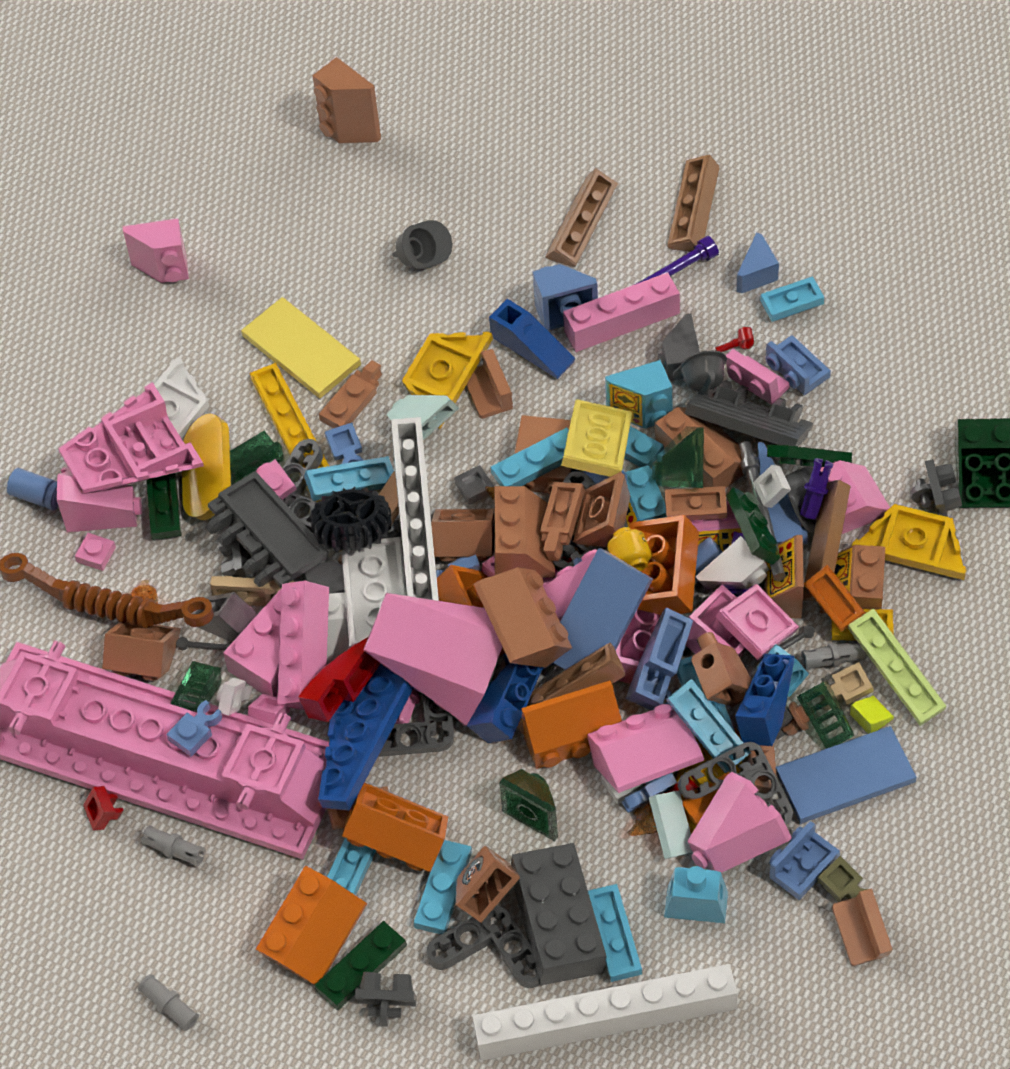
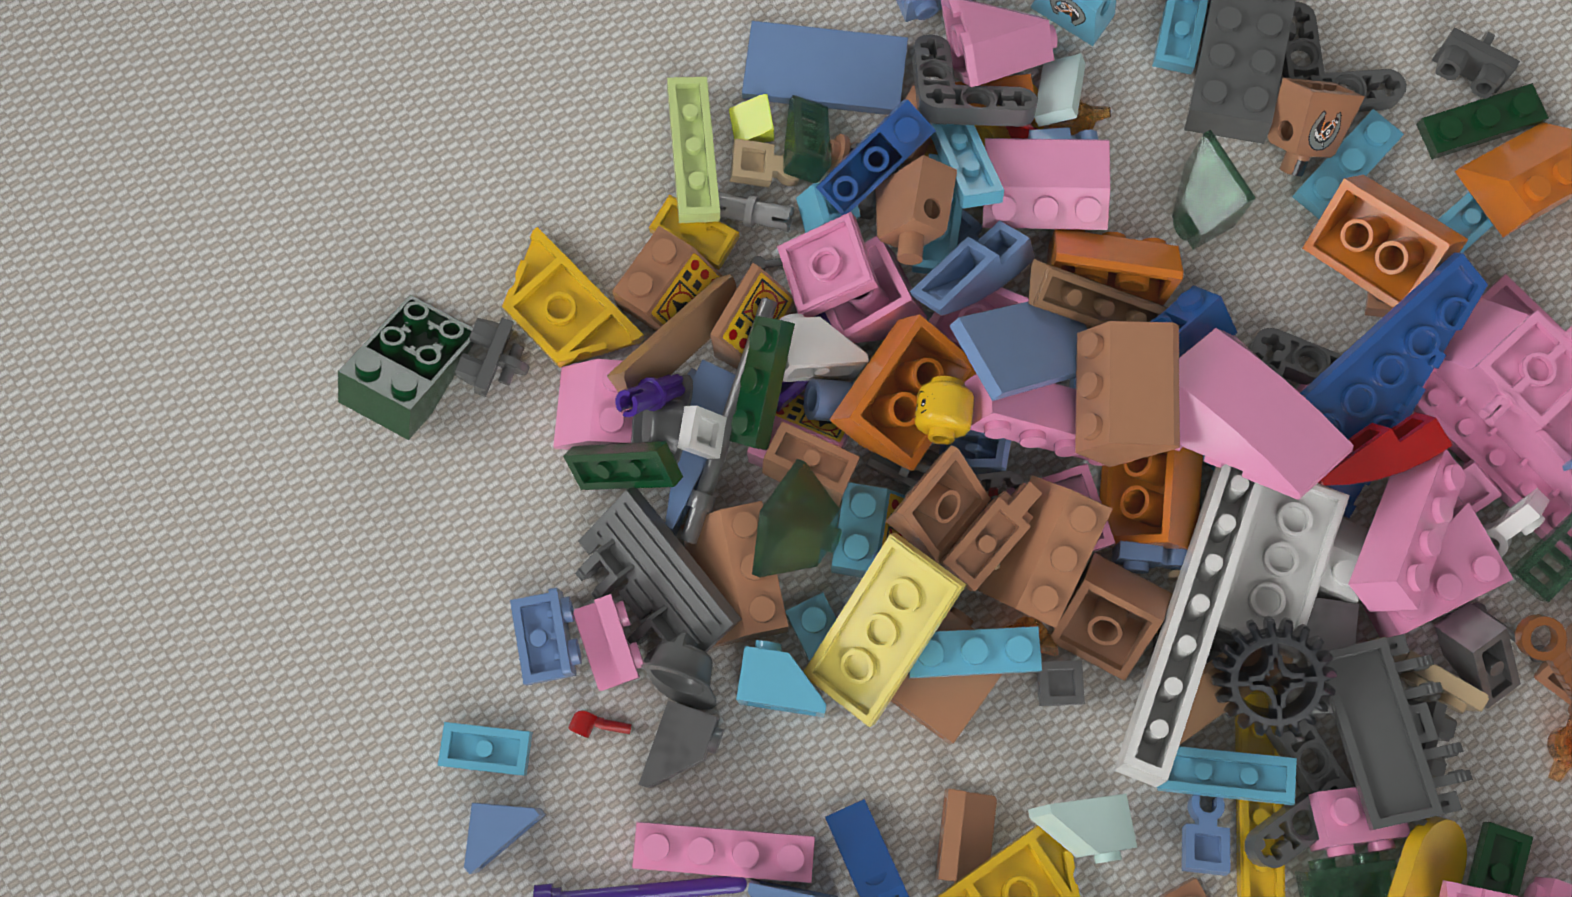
camera: 155 degrees left, 20 degrees up
(834, 598) = (715, 253): orange tile -> none

